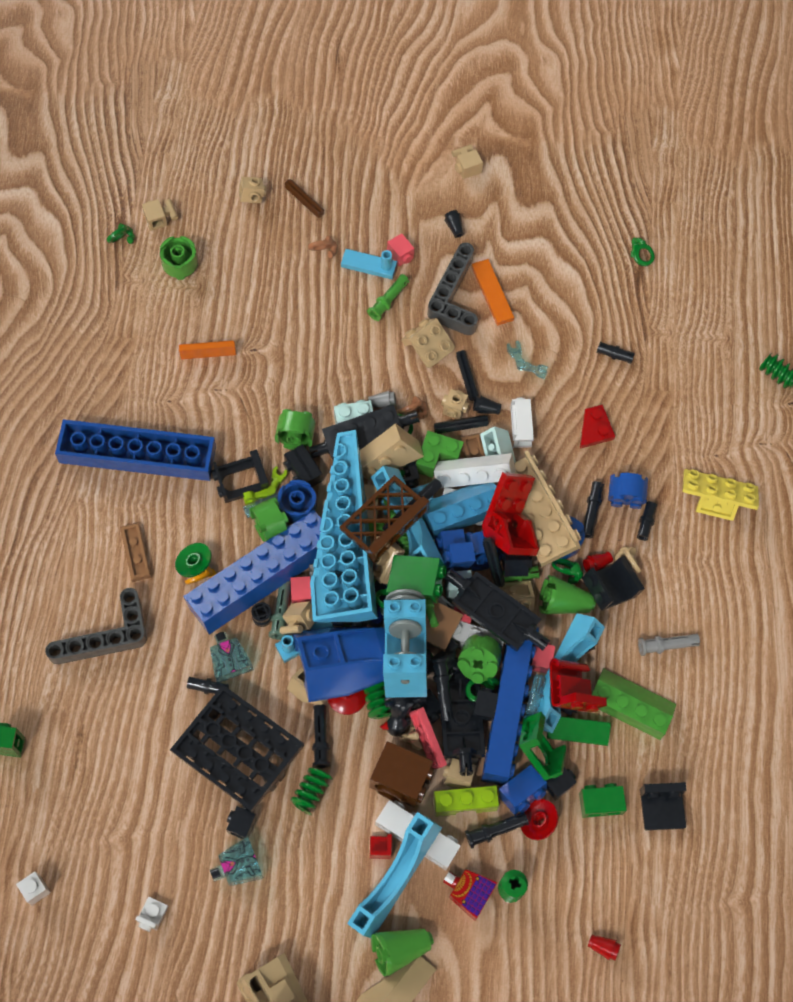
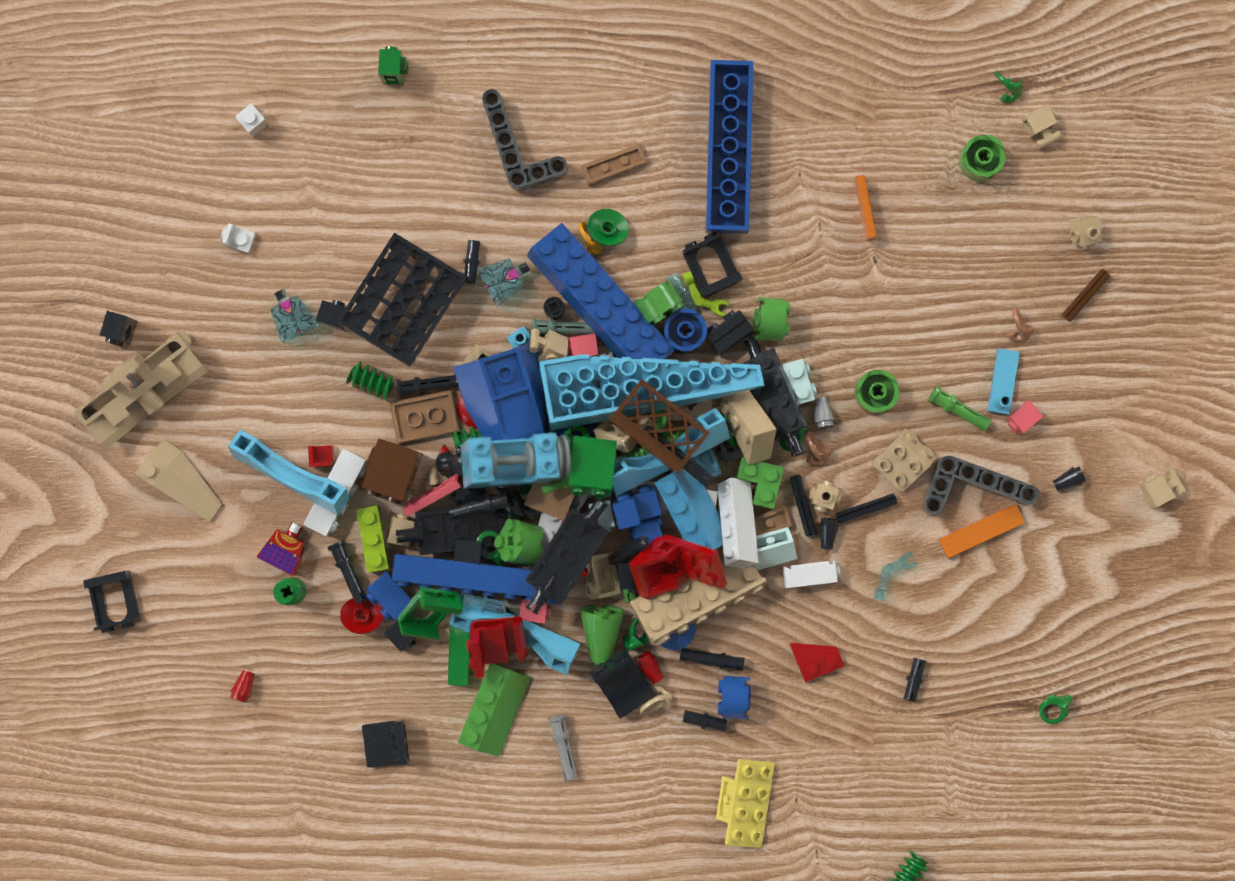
camera: 90 degrees right, 20 degrees up
(351, 744) = (424, 417): none -> medium nougat tile
(368, 354) = (888, 389): none -> bright green brick
(399, 948) = (223, 484): bright green cone -> none
(602, 801) = (386, 680): green brick -> none

